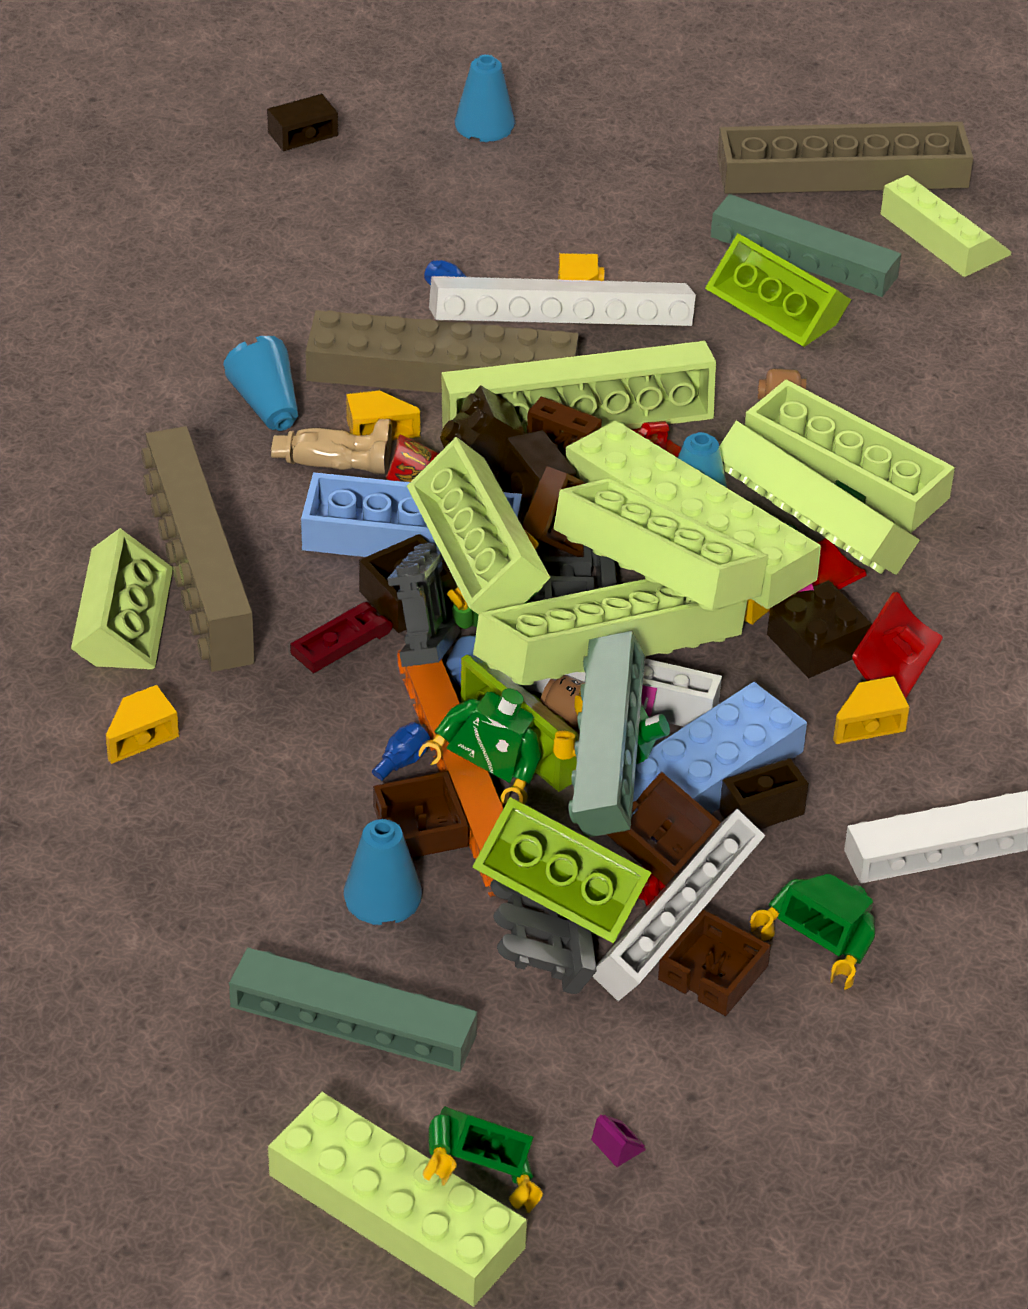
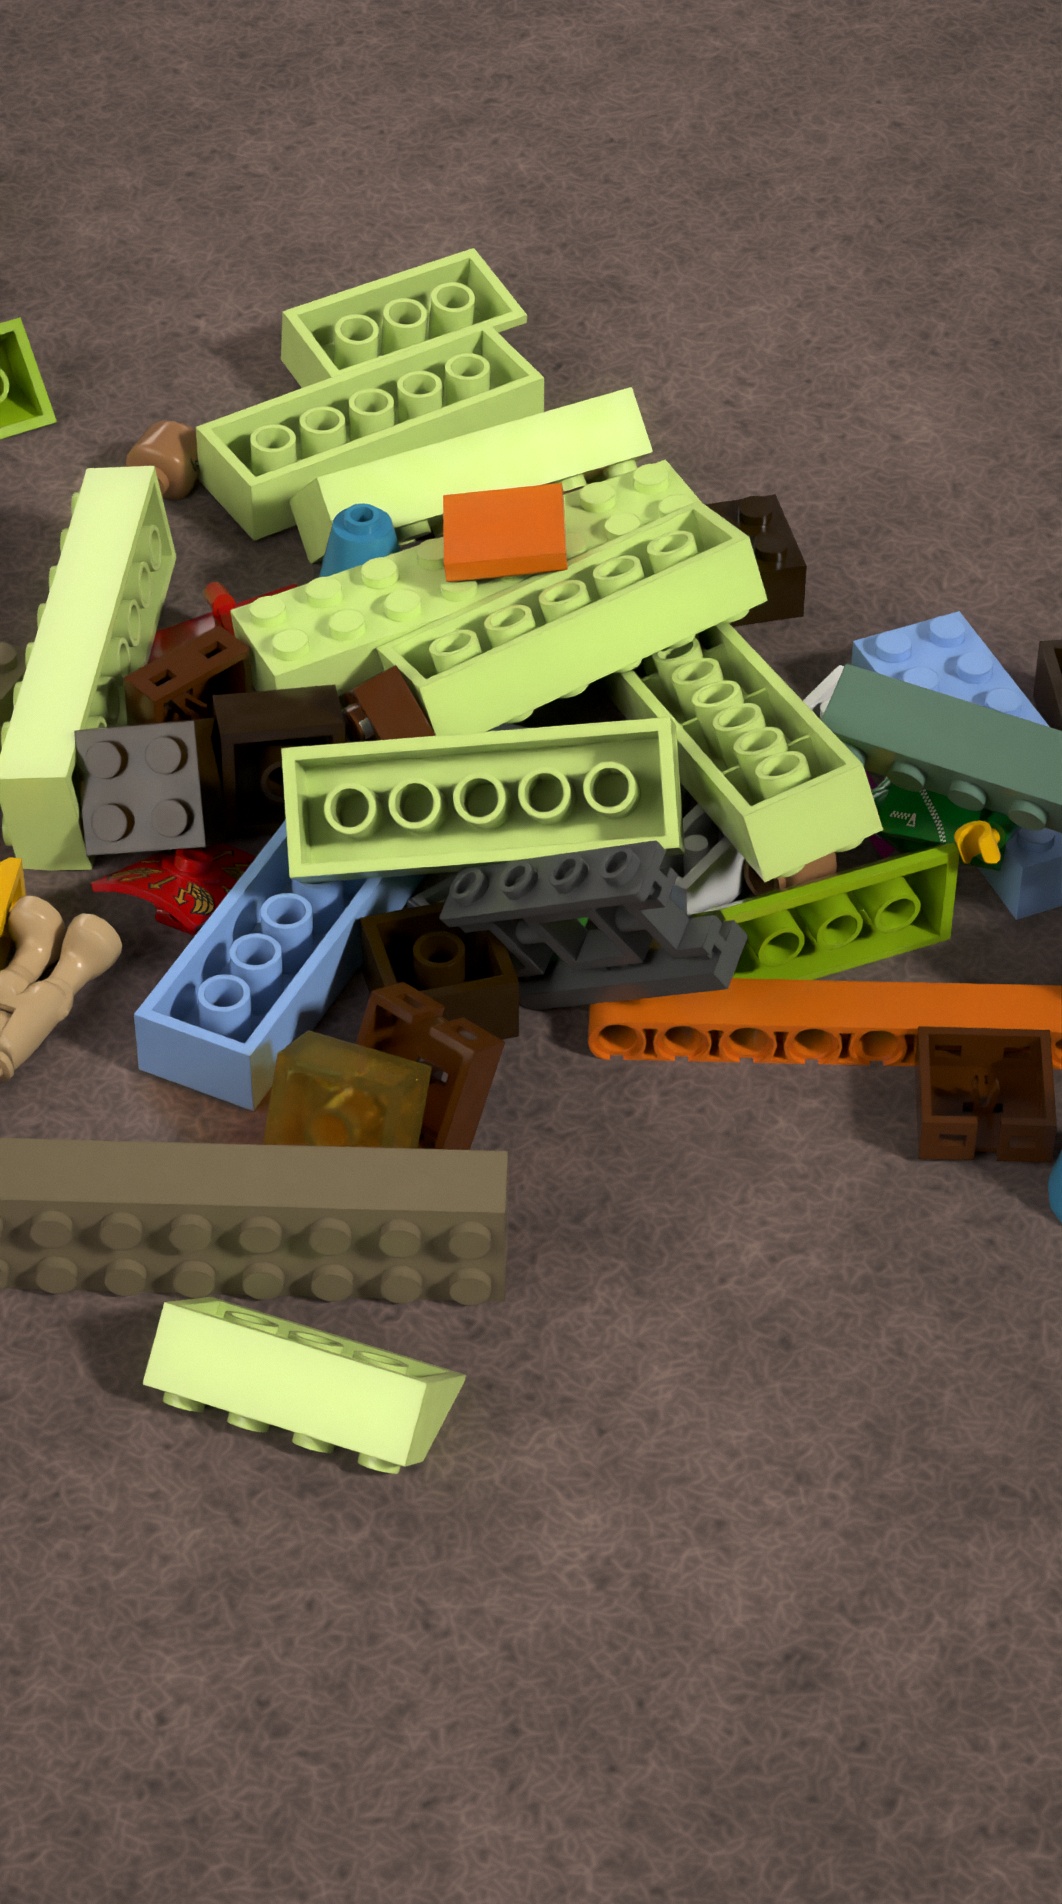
camera: 70 degrees left, 0 degrees up
(141, 724) = (628, 1410): yellow slope -> none
(279, 566) = (345, 1096): none -> clear yellow brick
(326, 588) = (412, 1027): none -> reddish brown piece
(340, 637) = (522, 1120): dark red plate -> none
(401, 749) = (812, 1086): blue piece -> none
(493, 736) = (898, 936): green torso -> none
(707, 491) = (504, 532): none -> orange tile
(872, 711) = (917, 559): yellow slope -> none
(896, 646) = (808, 505): red shield -> none
(977, 453) = (394, 316): none -> yellowish green slope

